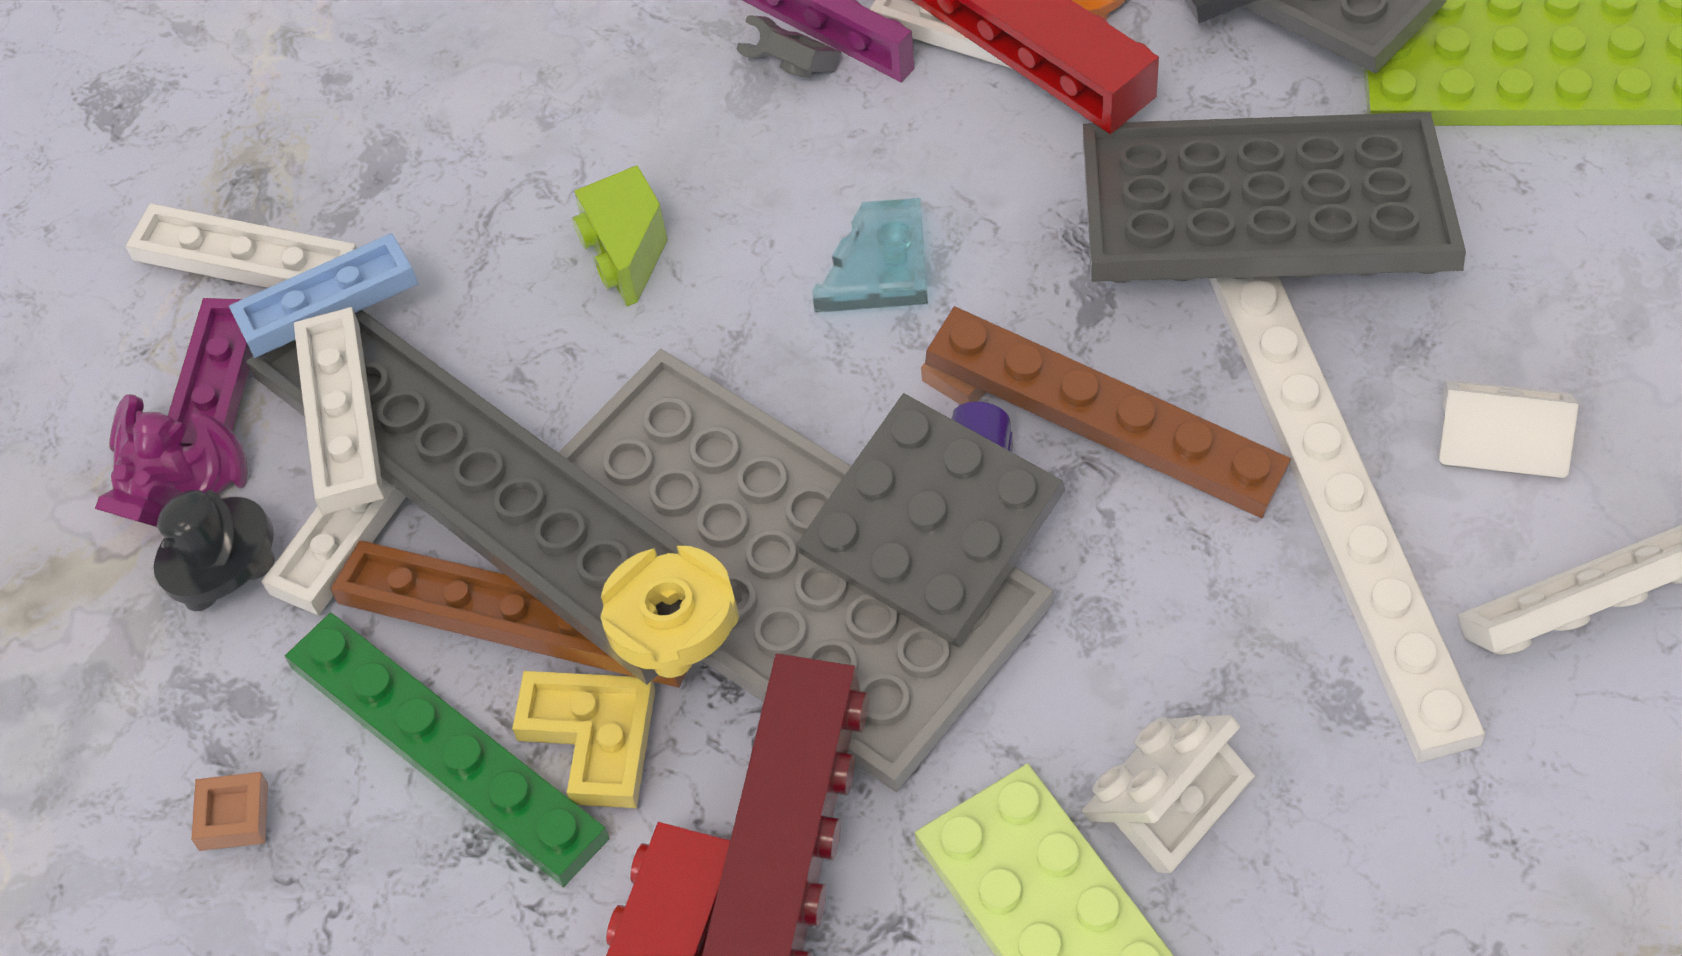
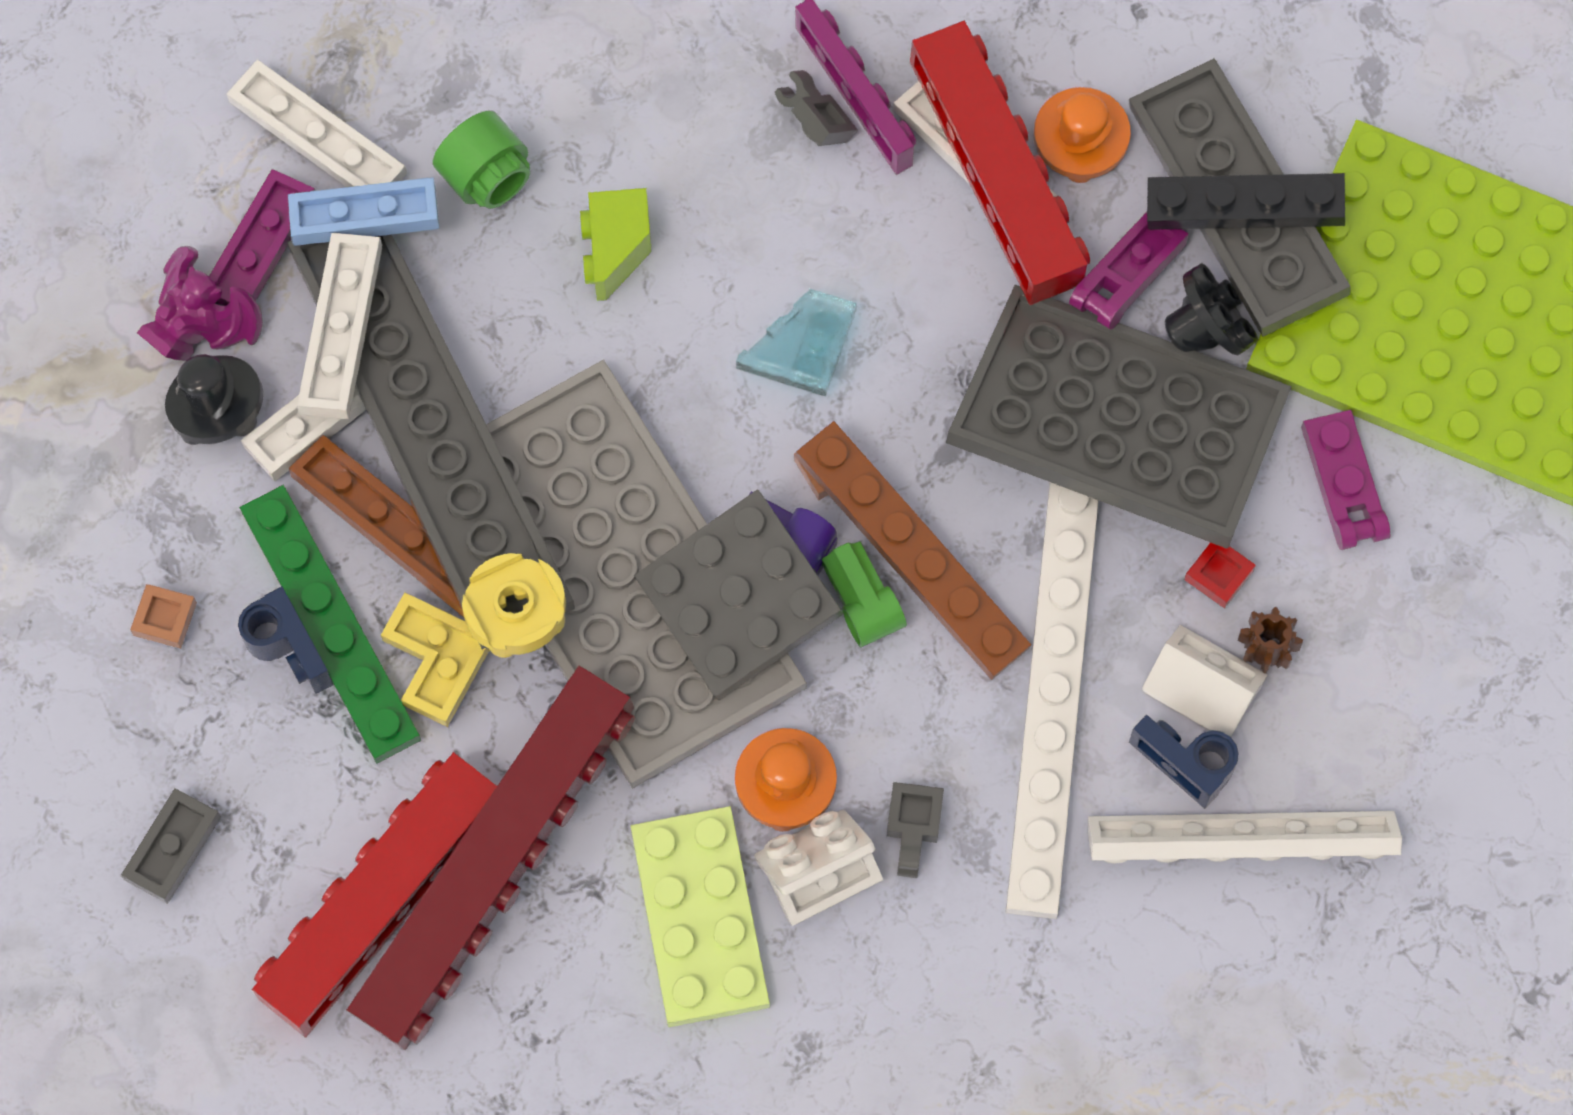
camera: 15 degrees right, 15 degrees up
(399, 779) = (288, 637): none -> dark blue plate
(442, 204) = (483, 161): none -> bright green piece
(1078, 709) = (785, 778): none -> orange plate
(1094, 486) = (867, 605): none -> bright green piece
(1197, 68) = (1127, 271): none -> magenta plate
(1258, 692) = (914, 819): none -> dark grey plate
(1307, 75) = (1209, 316): none -> black plate
(1459, 311) = (1219, 573): none -> red plate
(1537, 515) = (1182, 765): none -> dark blue plate
(1538, 181) = (1345, 479): none -> magenta plate
(1556, 353) = (1270, 652): none -> reddish brown gear

